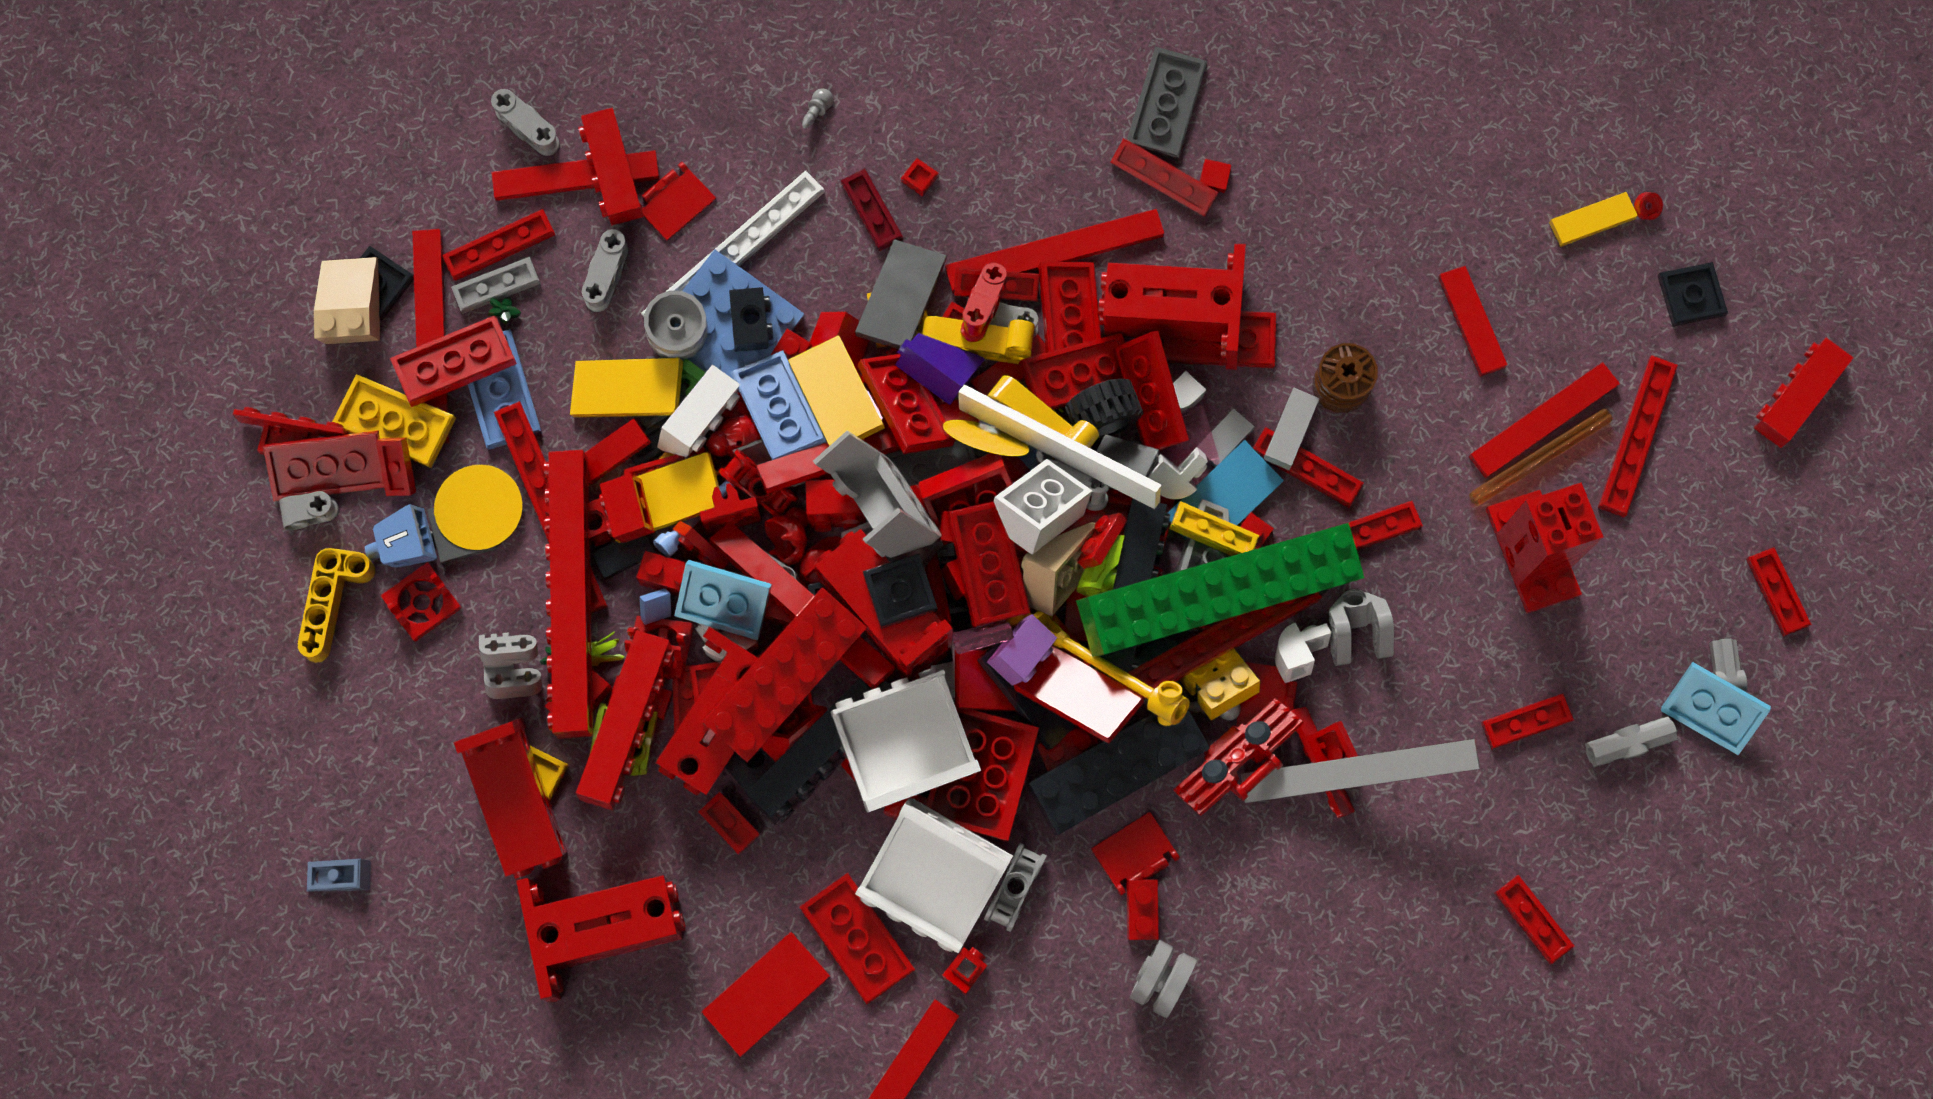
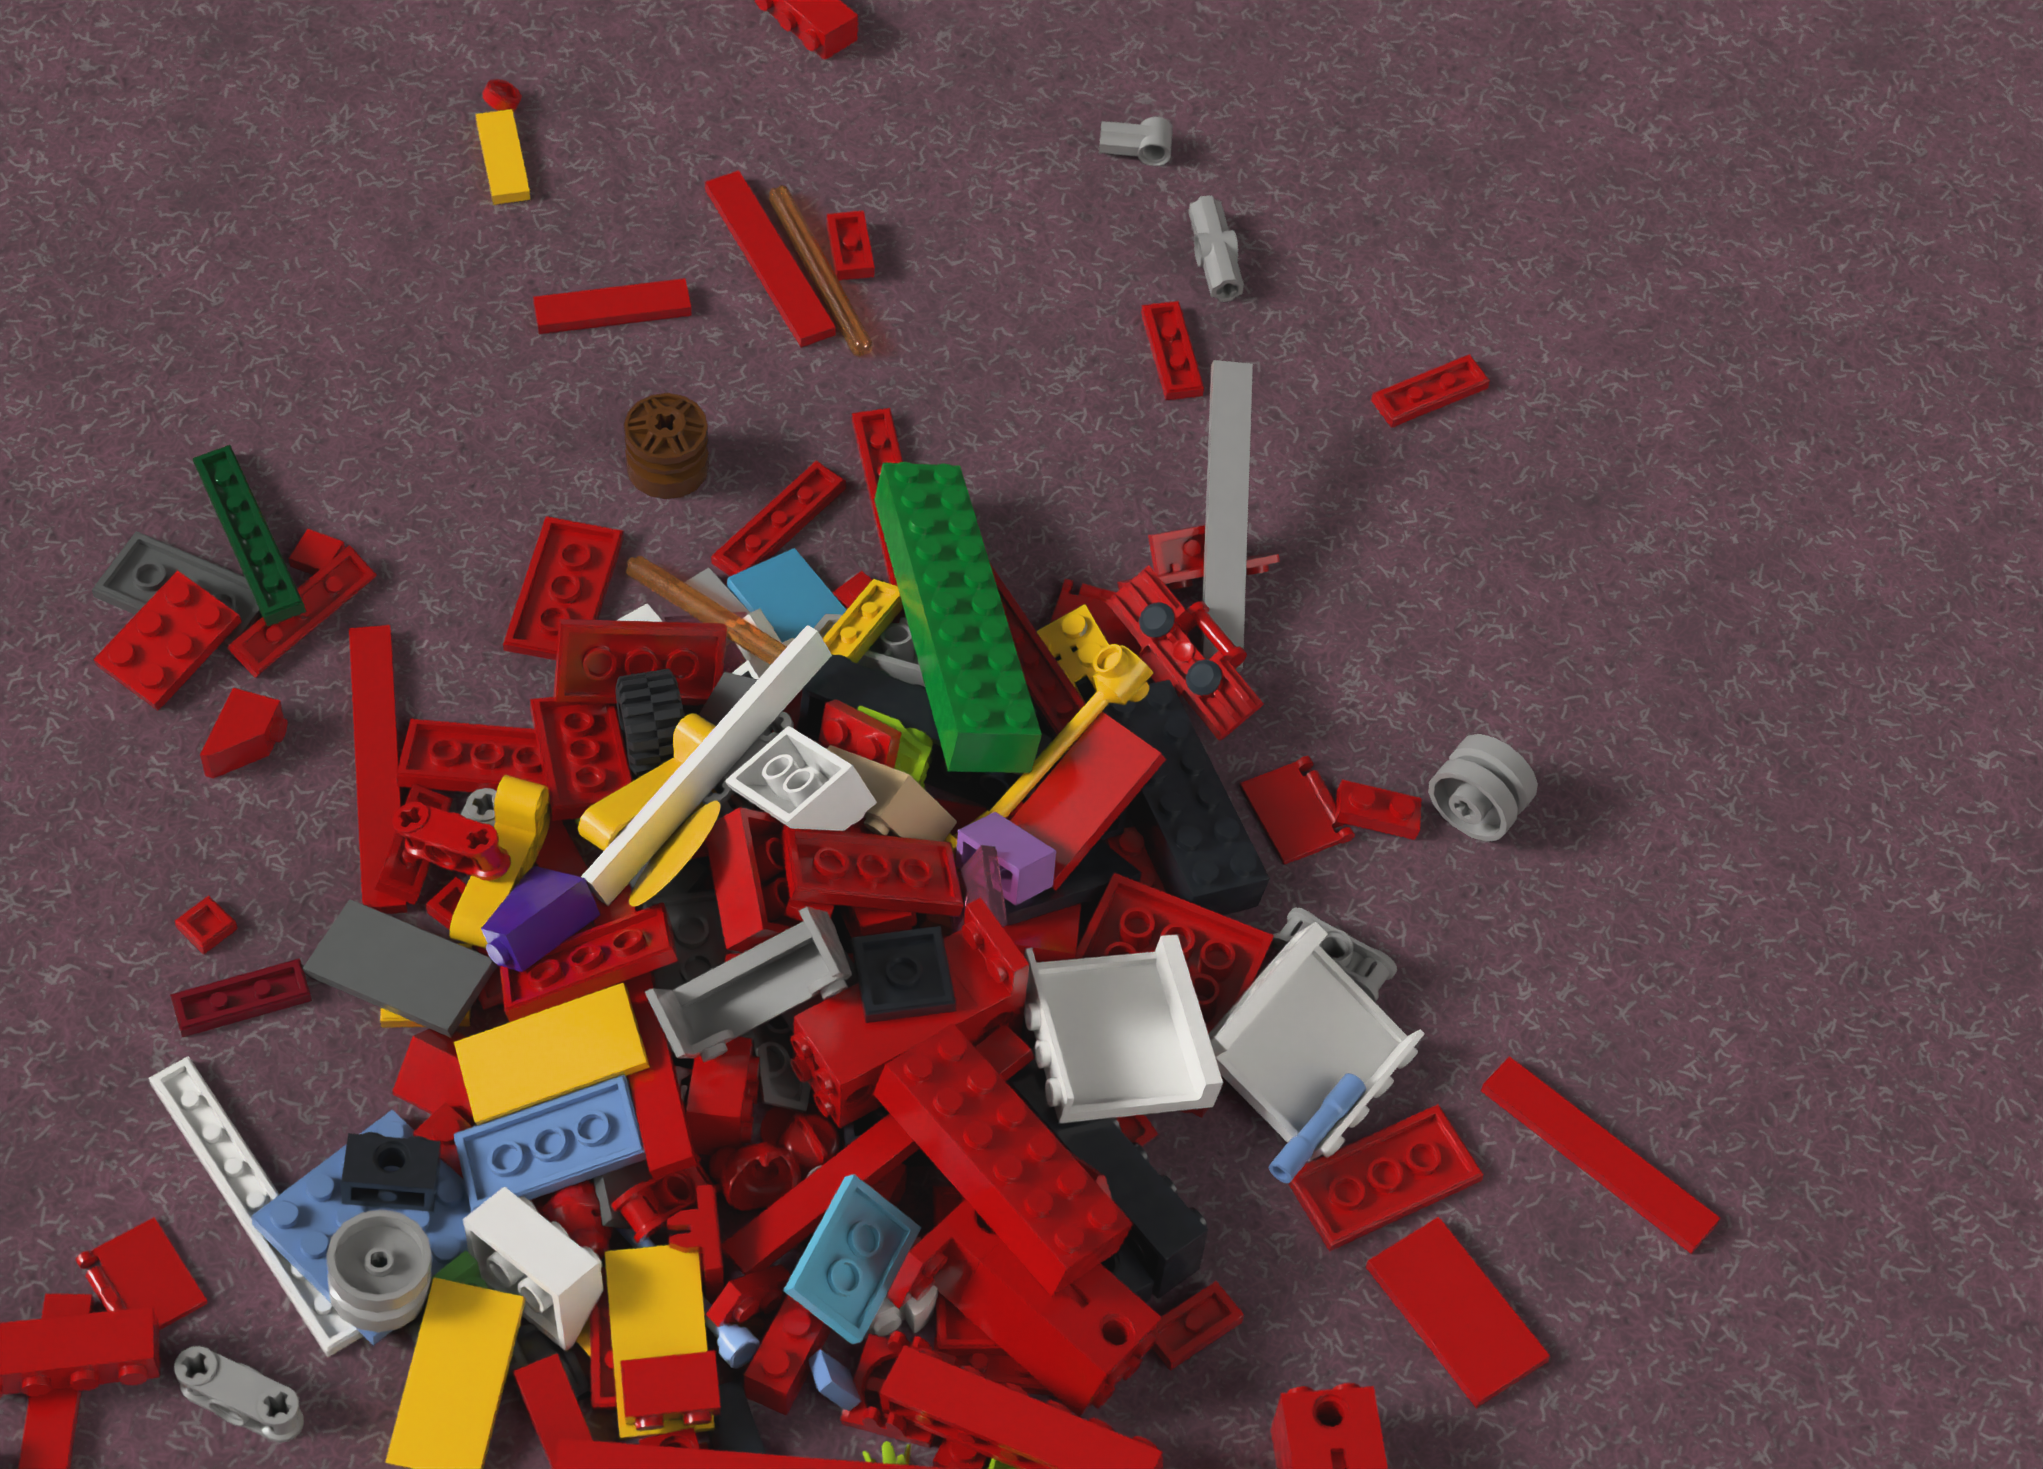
camera: 85 degrees left, 20 degrees down
(821, 101) = (36, 1043): light grey bar -> none
(859, 878) = (1302, 1146): none -> medium blue piece
(965, 969) = (1446, 1036): red window -> none
(1059, 162) = (243, 732): none -> red slope
(1122, 101) = (167, 640): none -> red plate
(1176, 302) = (514, 604): red brick -> none
(1204, 431) = (704, 609): none -> clear orange axle
(1215, 128) = (249, 535): none -> dark green tile
(1291, 428) = (723, 523): light grey tile -> none
(1295, 648) = (1044, 571): white brick -> none
(1357, 610) = (1028, 505): light grey piece -> none
(1544, 541) = (947, 257): red brick -> none
(1567, 473) = (850, 245): none -> red plate
(1637, 436) = (812, 169): red tile -> none
(1692, 294) = (633, 80): black tile -> none
(1715, 708) = (1188, 154): medium azure plate -> none
(1778, 591) = (1043, 76): red tile -> none

